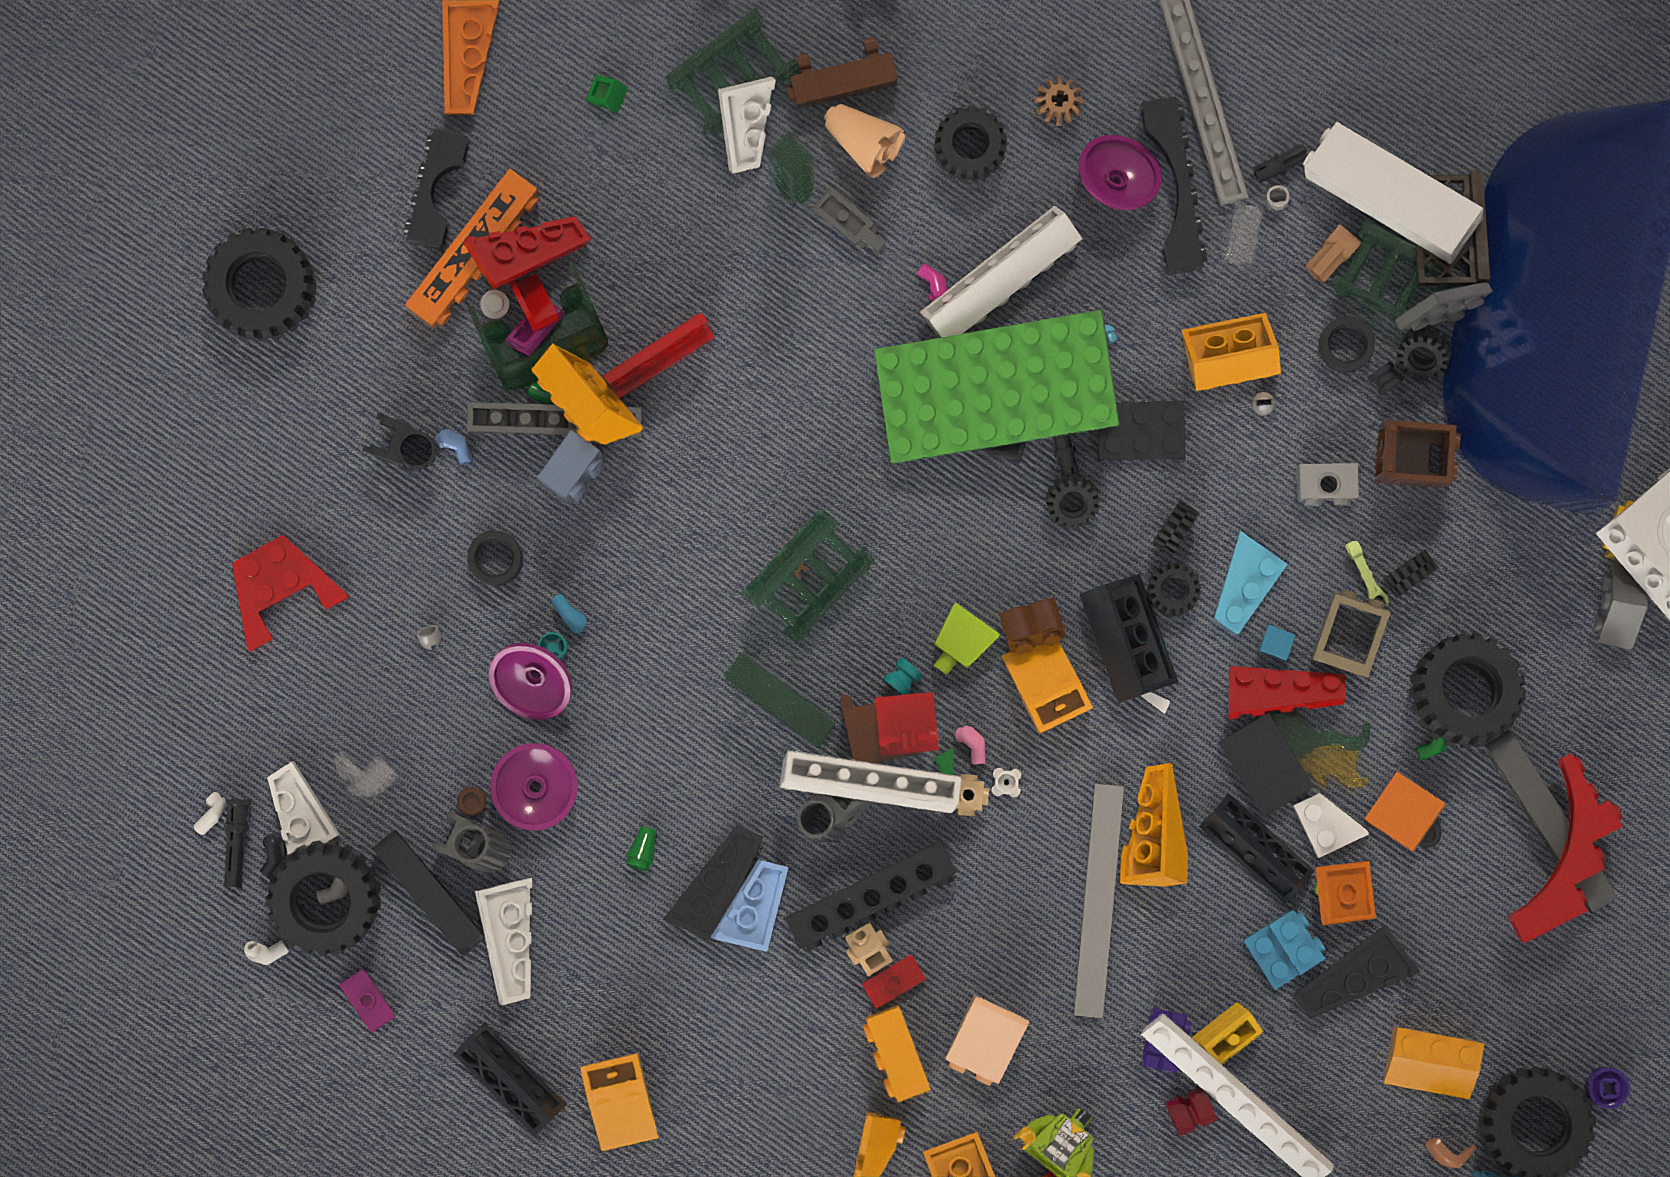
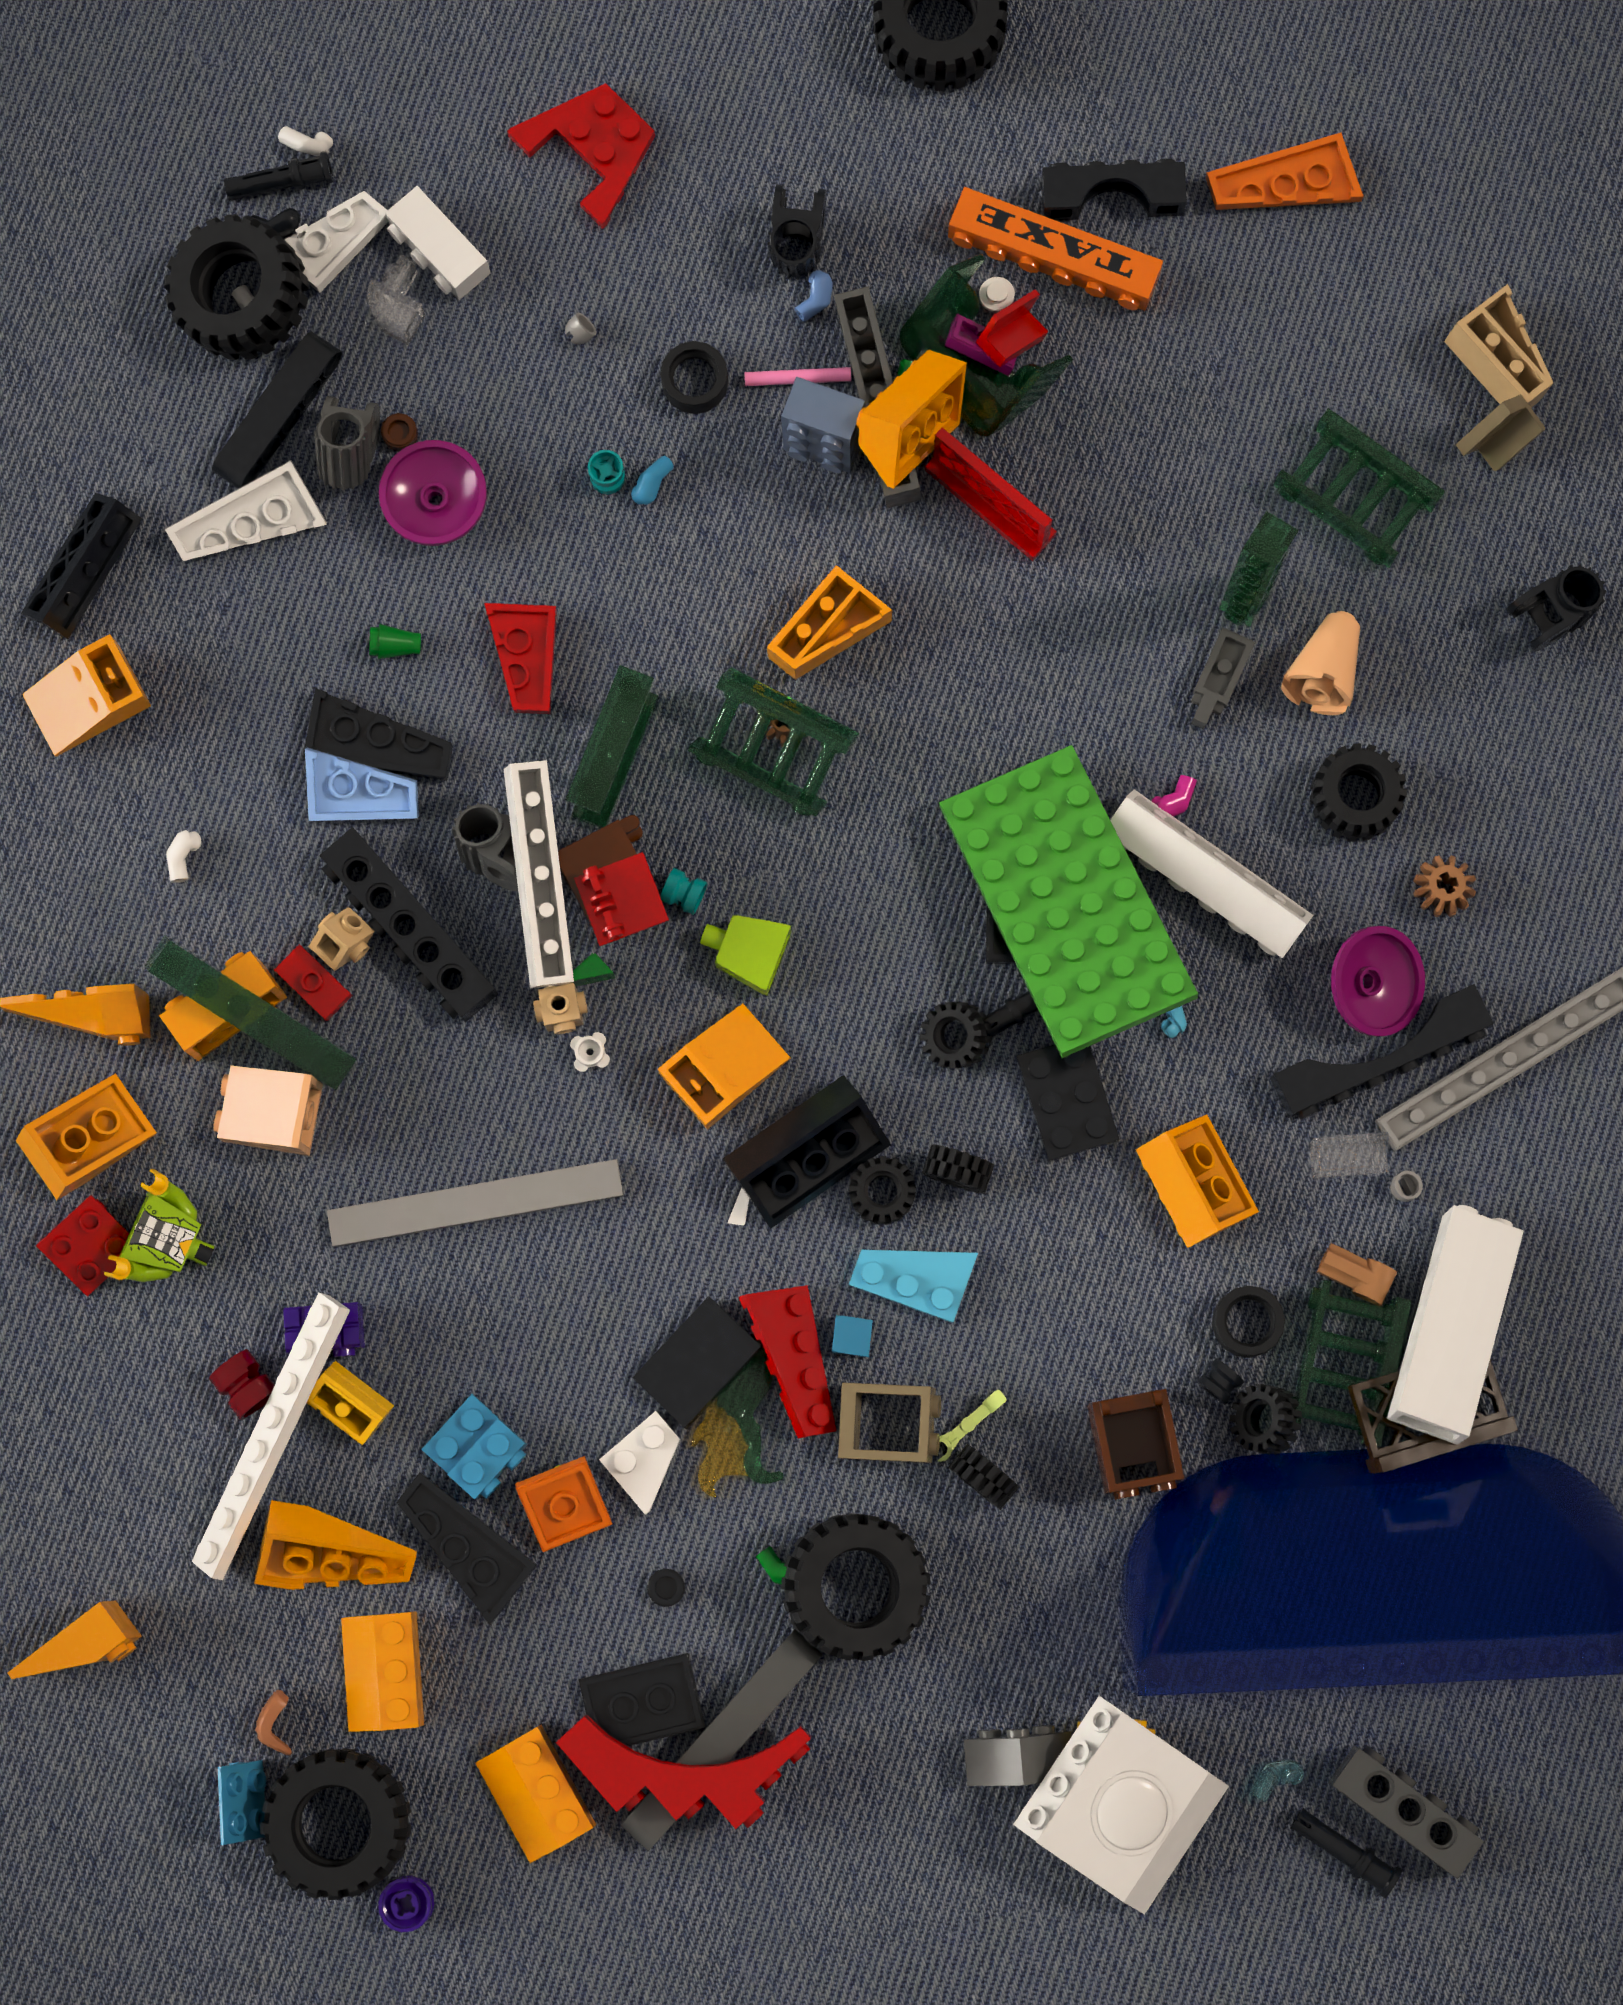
camera: 80 degrees right, 5 degrees down
(263, 954) = (157, 245): white arm -> none
(327, 731) = (436, 244): none -> white brick
(367, 1000) = (133, 378): magenta plate -> none
(516, 477) = (785, 377): none -> bright pink bar
(518, 252) = (1062, 293): red wing -> none
(530, 681) = (557, 453): magenta dish -> none
(606, 93) = (1289, 354): green slope -> none
(679, 748) = (526, 652): none -> red wing
(724, 508) = (827, 624): none -> light orange wedge
(744, 119) = (1314, 508): white wing -> none
(762, 1060) = (178, 851): none -> white arm
(842, 80) = (1389, 620): reddish brown brick -> none
(902, 1044) = (249, 1012): none -> clear green arch
(974, 741) = (629, 999): bright pink arm -> none
(1032, 626) = (788, 1028): reddish brown brick -> none
(1157, 841) = (562, 1255): light orange wedge -> none
(1254, 852) = (584, 1376): black fence -> none
(1263, 409) = (1137, 1241): light grey hinge -> none
(1280, 163) = (1450, 1178): black axle -> none
(1326, 1089) = (315, 1547): none -> light orange wedge
(1343, 475) = (1070, 1321): light grey brick -> none
(1405, 811) = (684, 1552): orange tile -> none
(1444, 306) = (1330, 1422): dark grey plate -> none
(1505, 871) = (645, 1700): none -> black tile
(1553, 970) = (536, 1794): none -> light orange slope

